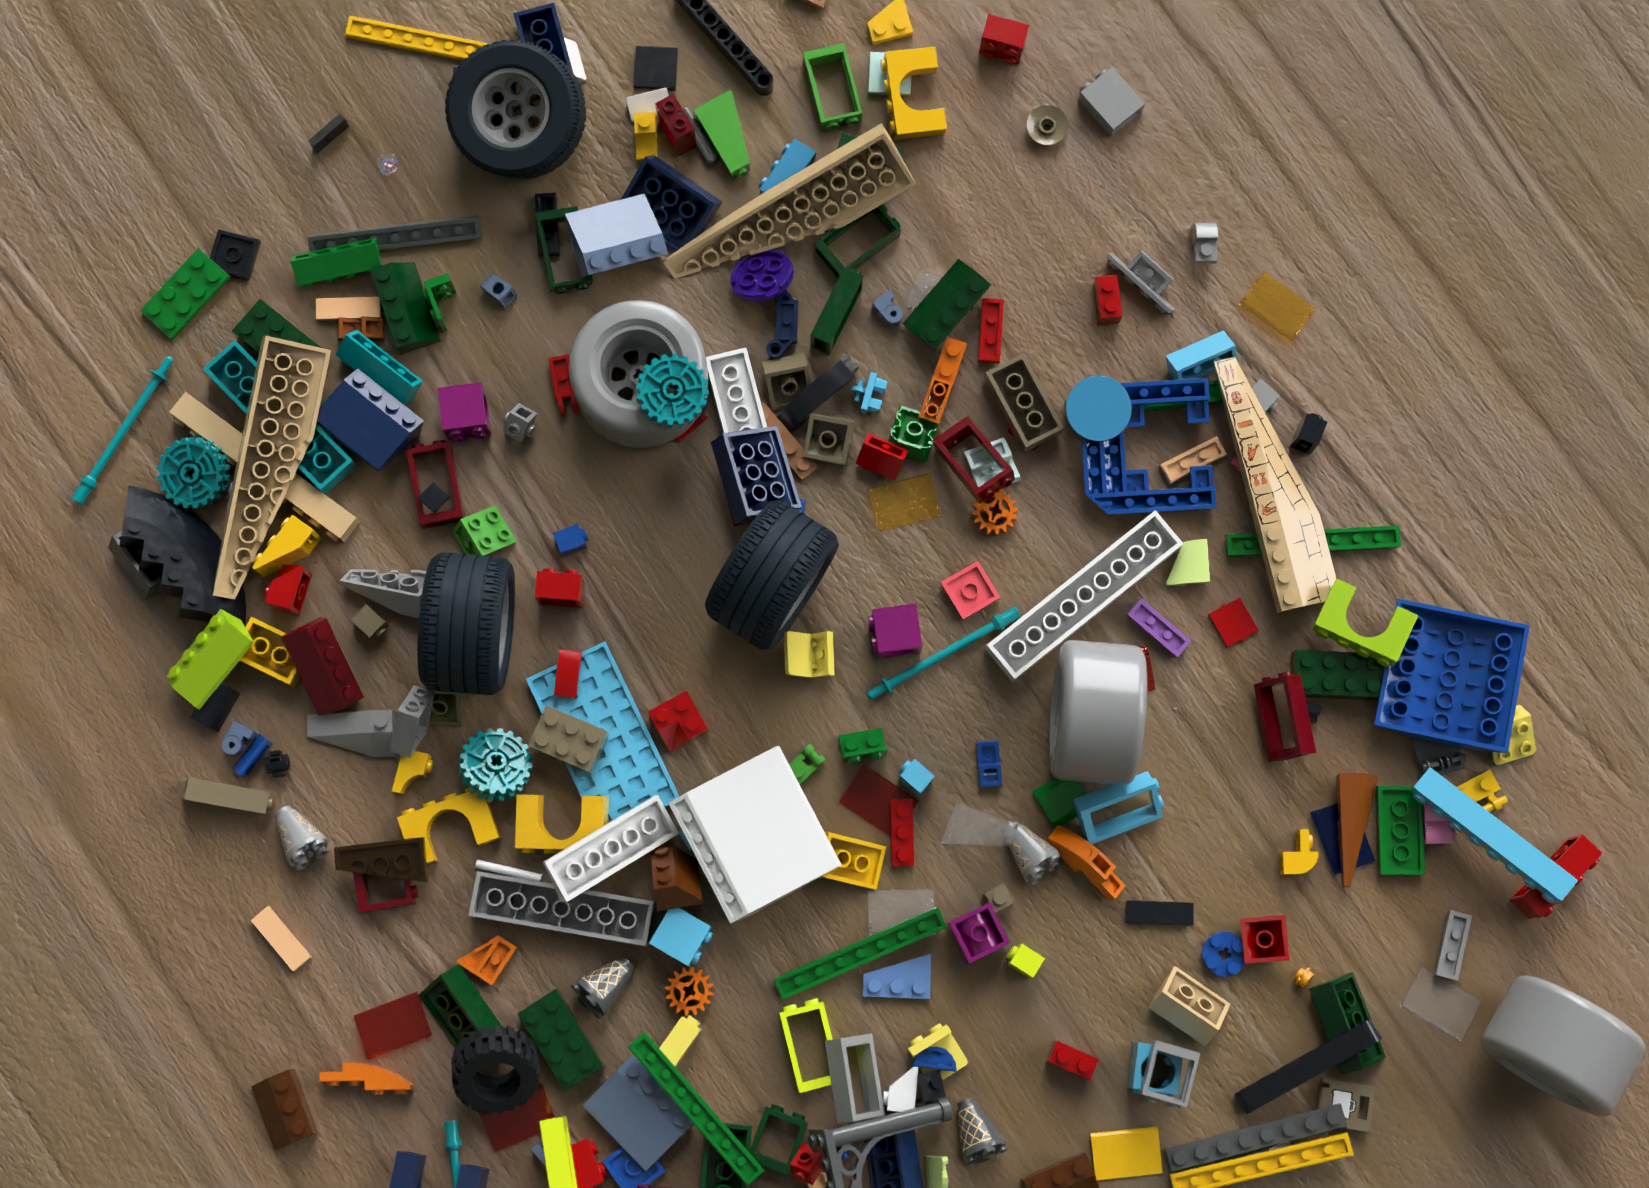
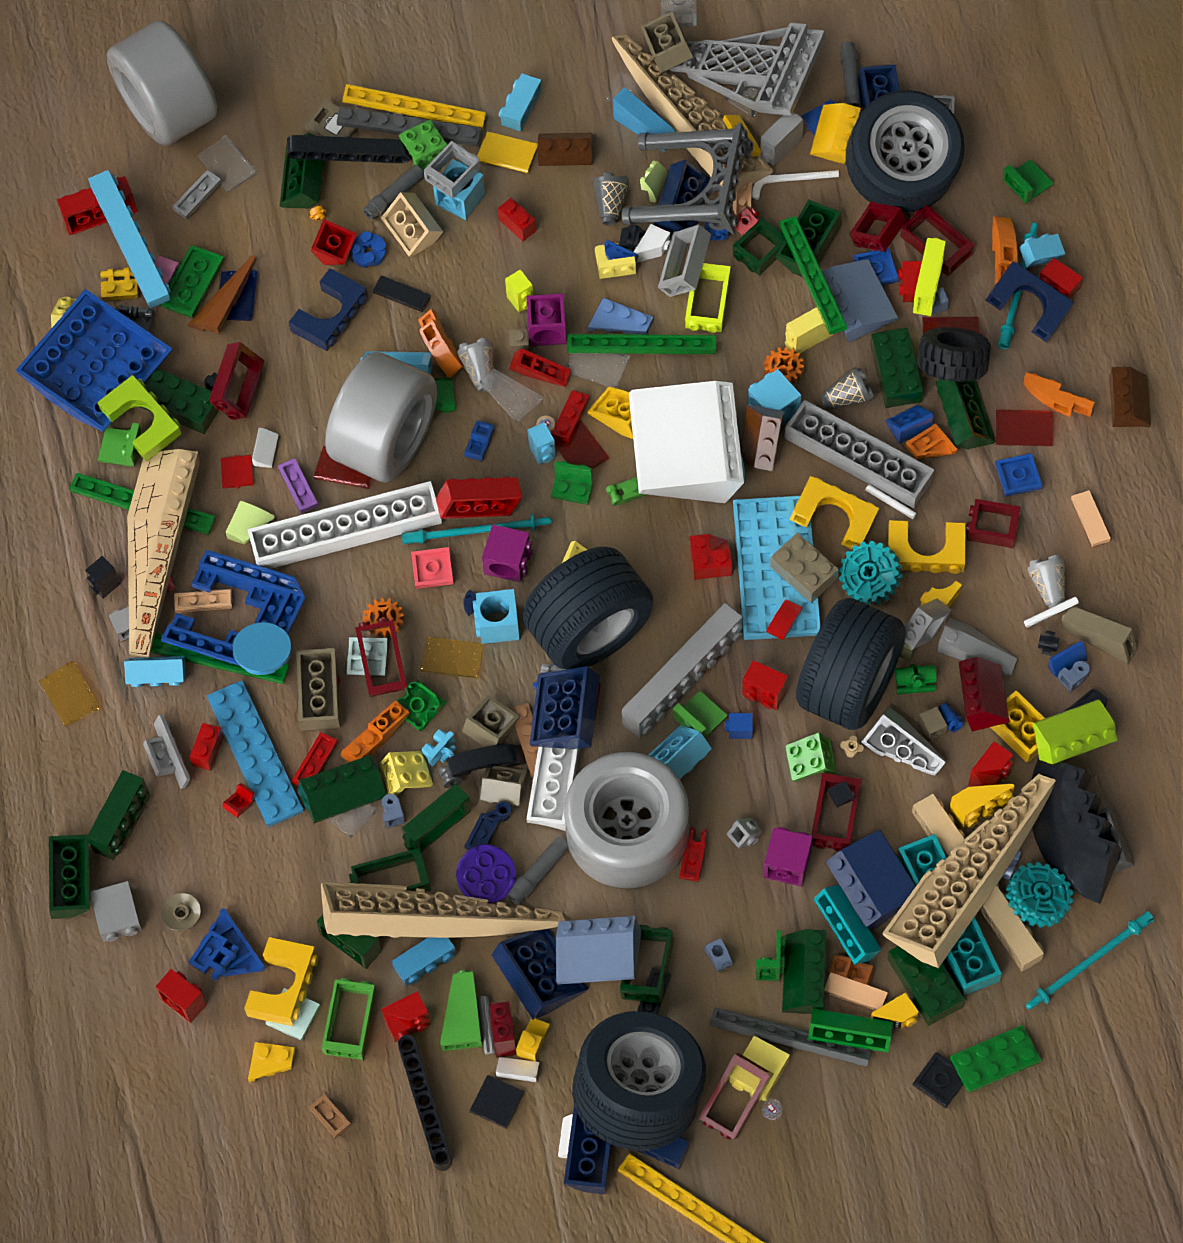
camera: 150 degrees left, 15 degrees down
(284, 800) = (1050, 612): none -> white bar
(299, 299) = (899, 1011): none -> yellow slope
(328, 133) = (815, 1153): pearl dark grey tile -> none
(354, 637) = (951, 717): none -> blue cone
(378, 959) = (1018, 475): none -> blue plate
(389, 859) = (984, 533): dark brown wing -> none
(402, 667) = (915, 679): none -> green pin
(413, 192) = (765, 1056): none -> light yellow brick
(426, 175) = (753, 1068): none -> window
(523, 977) = (909, 423): none -> blue slope
(610, 848) = (802, 471): white arch -> none
(617, 535) = (699, 714): none -> bright green bracket
(624, 481) = (682, 750): none -> medium azure slope
(653, 570) = (682, 671): none -> light grey brick
(666, 407) = (609, 753): teal piece -> none
(719, 286) = (526, 884): none -> dark grey piece
(775, 105) = (406, 1016): none -> red slope
(871, 574) = (496, 601): none -> medium azure brick
(881, 457) = (454, 691): red brick -> none
(892, 355) = (405, 771): none -> light yellow bracket
(911, 570) = (468, 602): none -> dark blue tile
(924, 812) = (549, 421): none -> tan tile
(955, 674) = (478, 497): none -> red brick
(962, 876) = (539, 368): none -> red slope
(982, 110) = (246, 958): none -> blue wing
(998, 90) = (208, 952): none -> blue plate
(1046, 257) = (239, 801): none -> red bracket
(1056, 317) = (255, 753): none -> dark azure plate
(1157, 190) = (118, 815): none -> dark green brick
(1175, 112) = (68, 876): none -> dark green slope
(1204, 242) = (99, 761): light grey brick -> none
(1212, 881) = (325, 331): none -> dark blue arch
(1216, 659) = (265, 448): none -> white slope
(1226, 1116) = (423, 143): none -> bright green bracket
(1239, 1018) = (381, 202): none -> dark grey piece
(1300, 861) = (278, 287): yellow brick -> none
(1372, 598) = (118, 446): none -> bright green bracket

